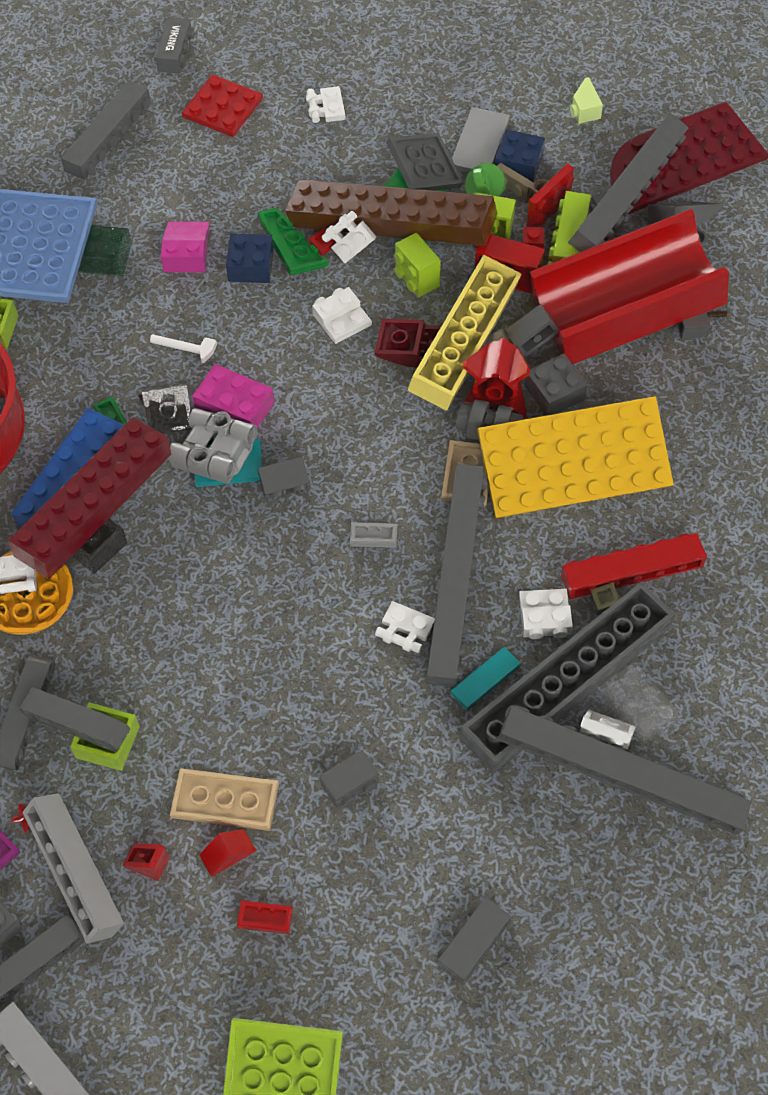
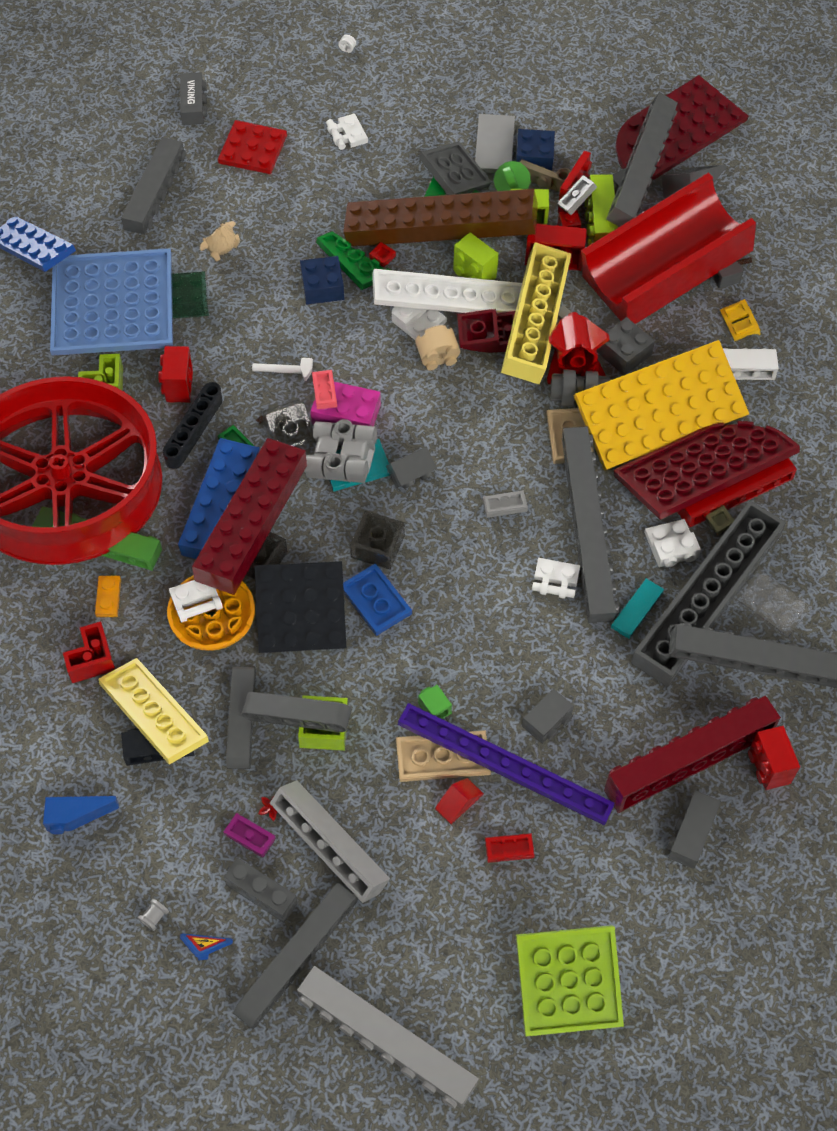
camera: 15 degrees left, 0 degrees up
(66, 332) = (176, 374): none -> red brick
(69, 389) = (209, 402): none -> black beam
(118, 605) = (300, 607): none -> black plate
(147, 860) = (391, 821): red slope -> none
(156, 198) = (221, 241): none -> tan hair
(185, 247) = (259, 279): dark pink slope -> none
(203, 613) = (376, 599): none -> blue plate
(210, 375) = (324, 389): none -> coral plate
(223, 548) = (377, 540): none -> clear smoke brick
(231, 740) = (435, 702): none -> bright green brick
(288, 824) = (506, 764): none -> dark purple plate
(349, 351) = (438, 347): none -> tan brick
(352, 242) = (412, 250): white plate -> none
(353, 11) = (347, 43): none -> white bush
(371, 292) = (443, 292): none -> white plate
(493, 854) = (689, 754): none -> dark red brick
(532, 330) = (593, 300): dark grey brick -> none
(545, 211) = (577, 195): none -> light grey plate
(585, 879) = (773, 758): none -> red brick
(586, 103) = (580, 95): yellowish green slope -> none
(602, 532) = (703, 464): none -> dark red plate
(607, 729) = (760, 629): white plate -> none
(690, 428) = (752, 363): none -> white brick
(696, 387) = (741, 328): none -> yellow piece

